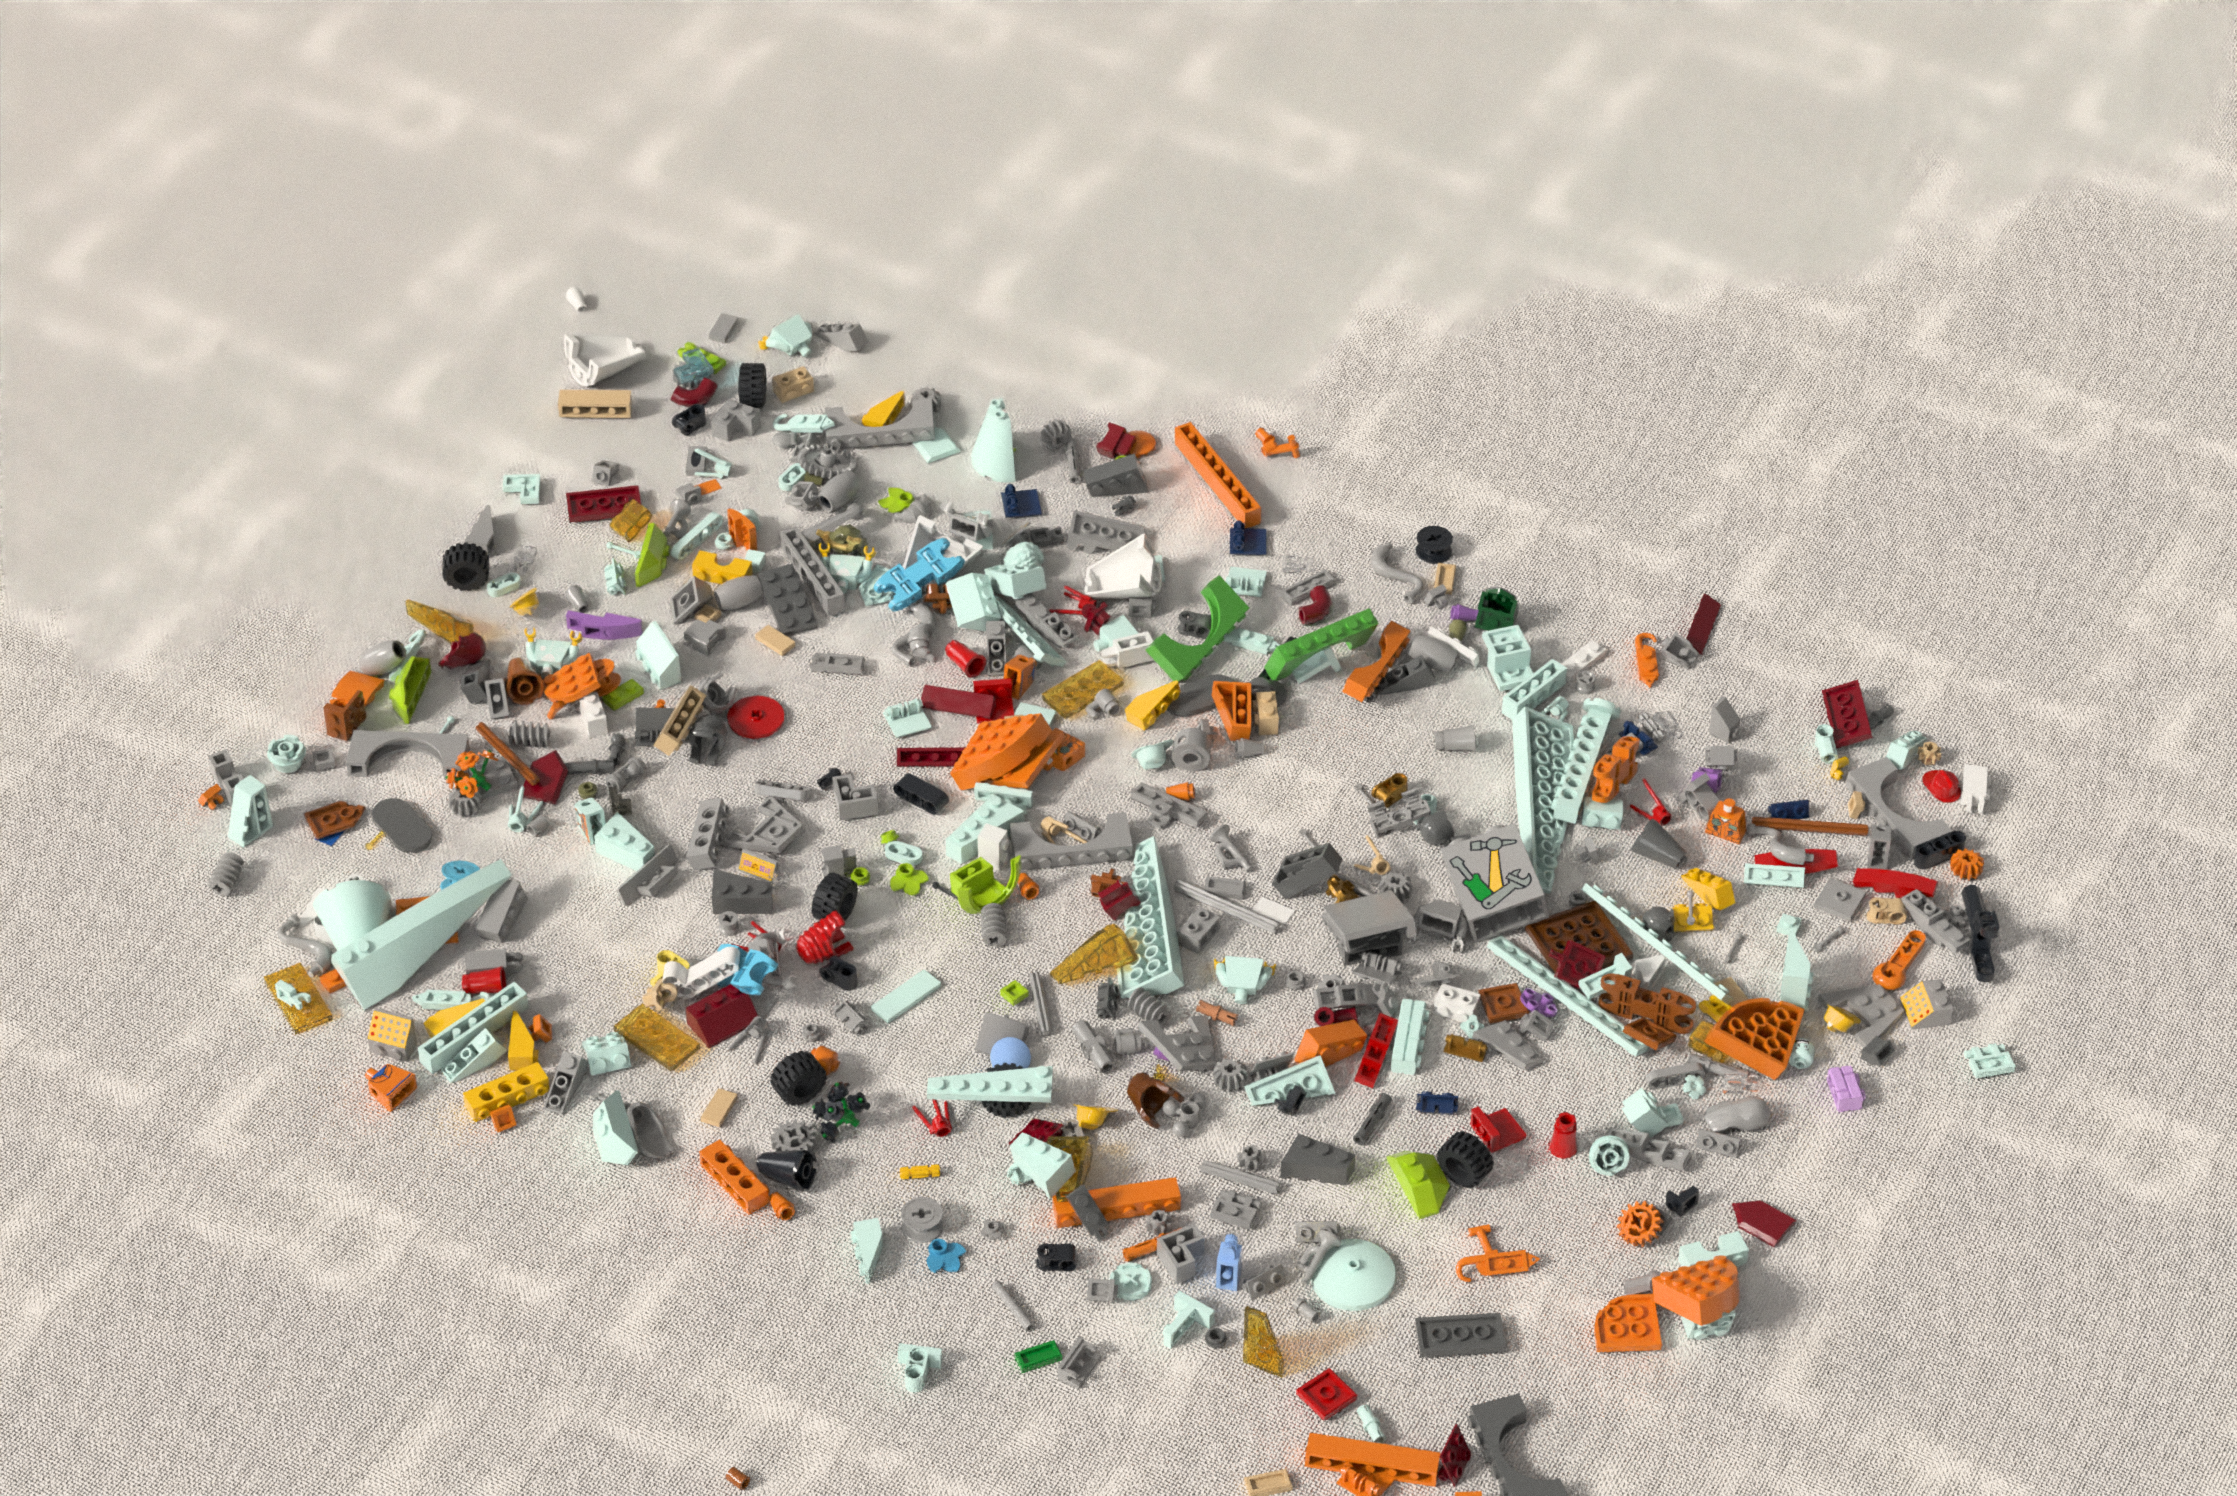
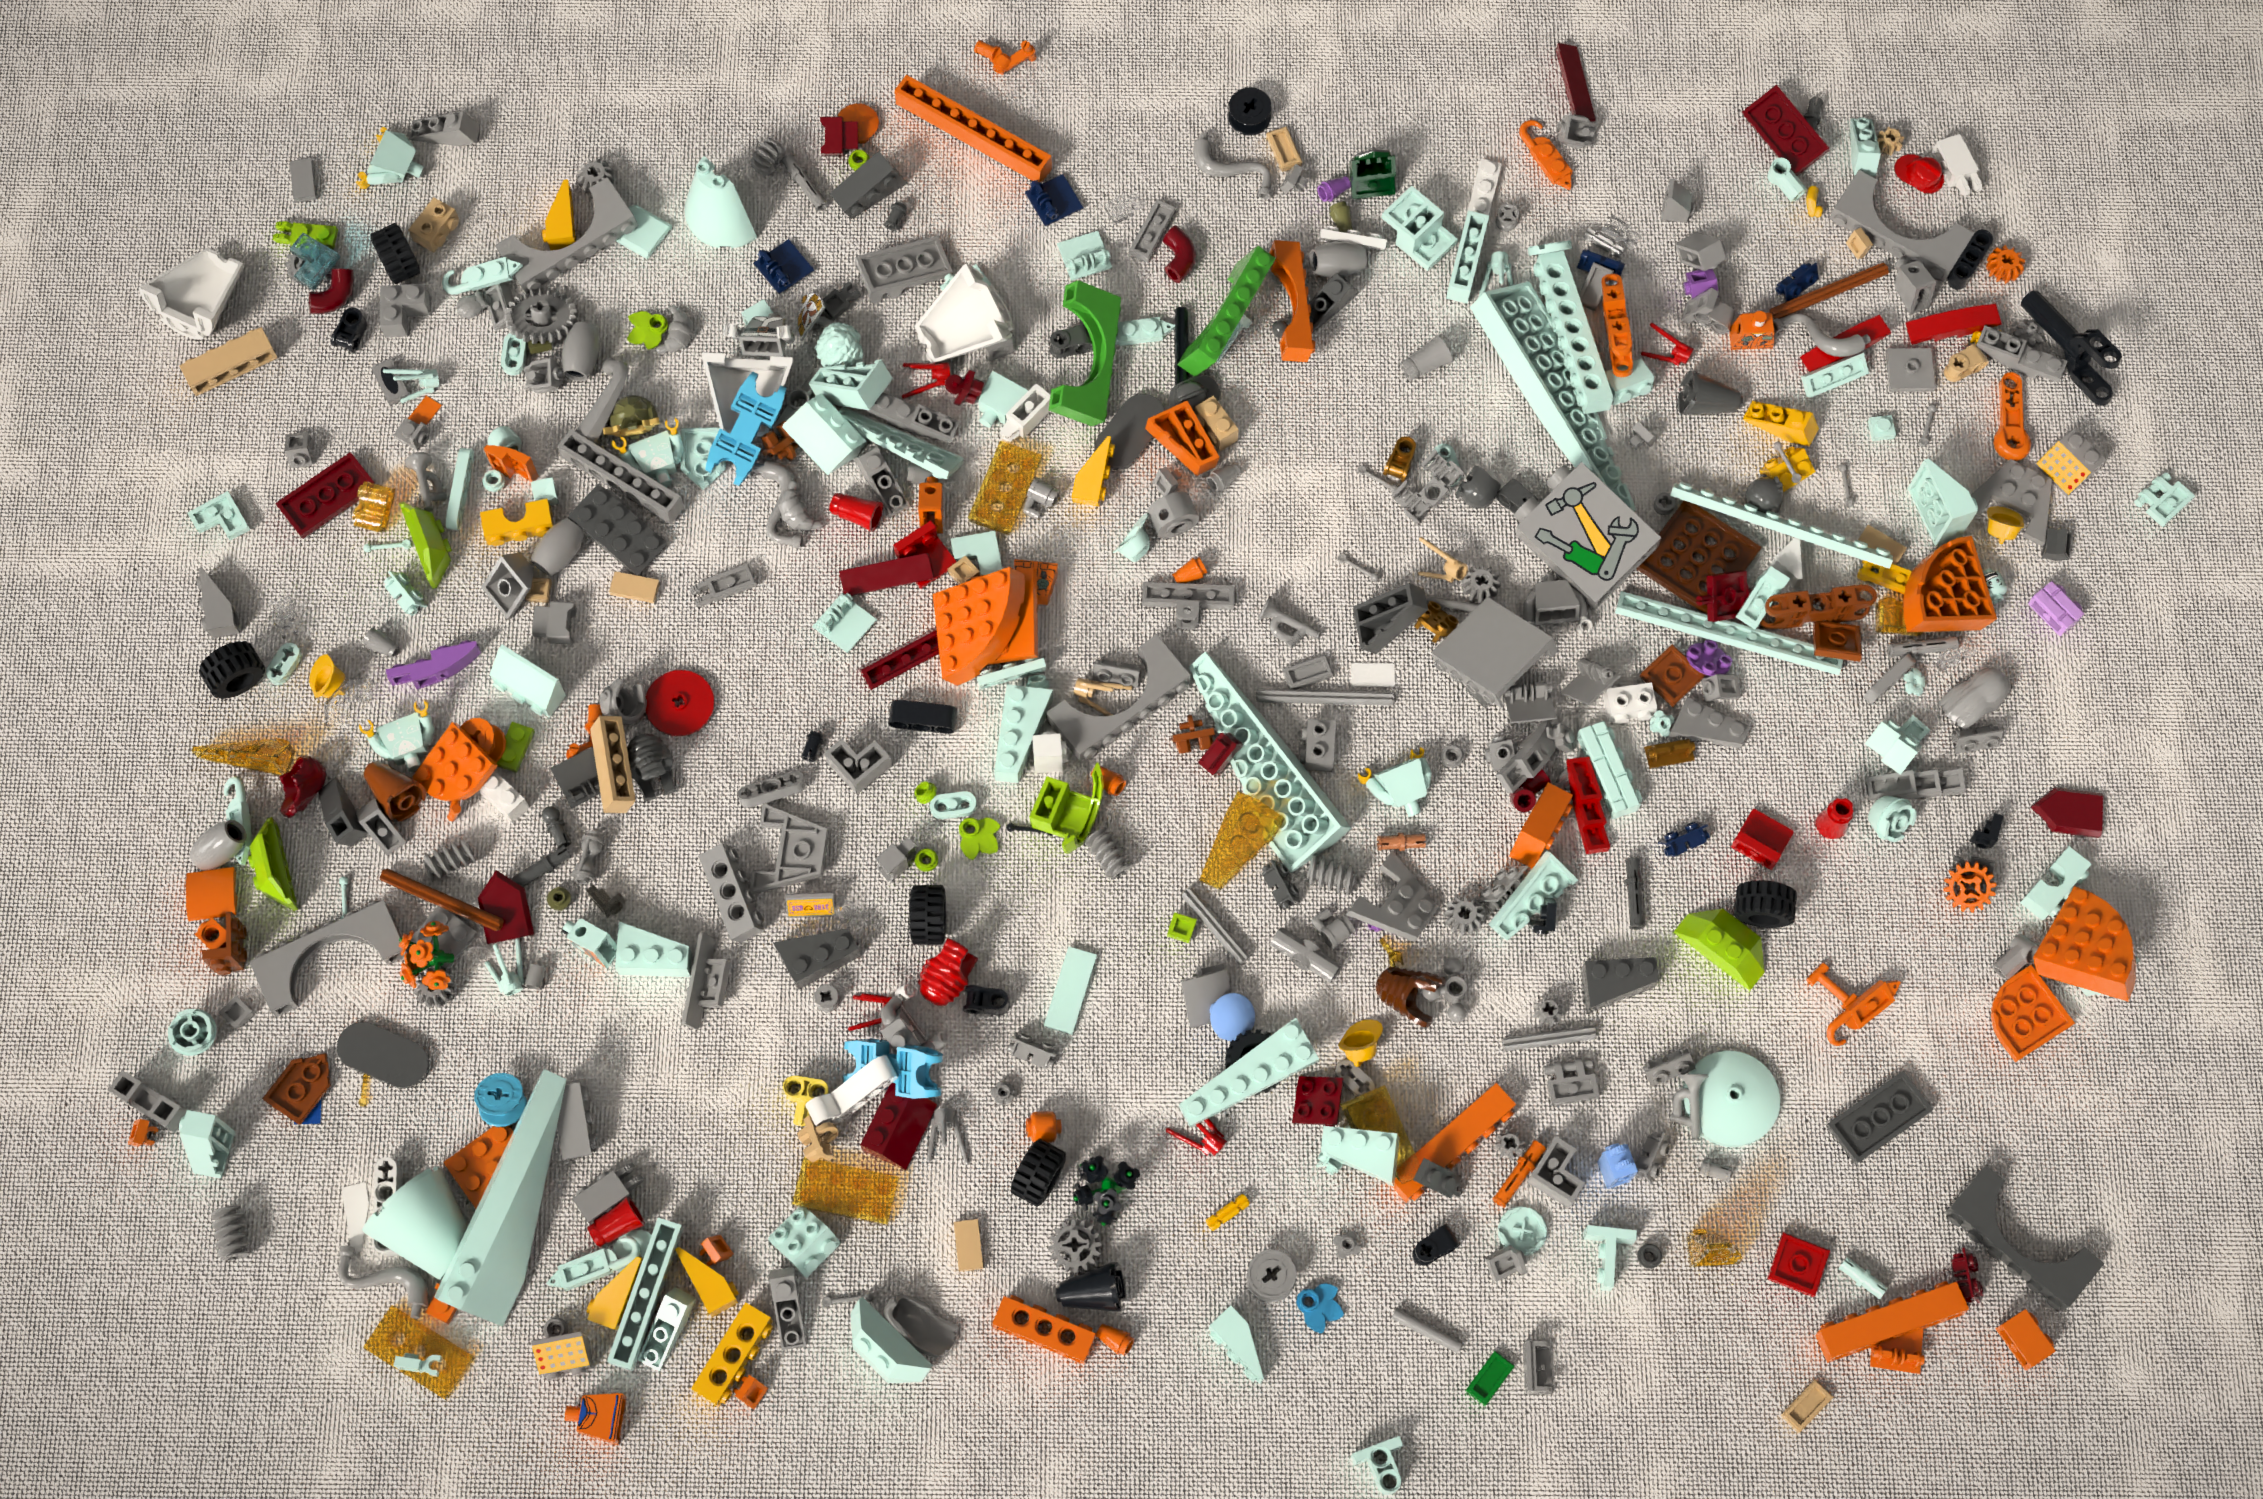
camera: 30 degrees left, 25 degrees up
(576, 298) = (110, 220): white cone -> none

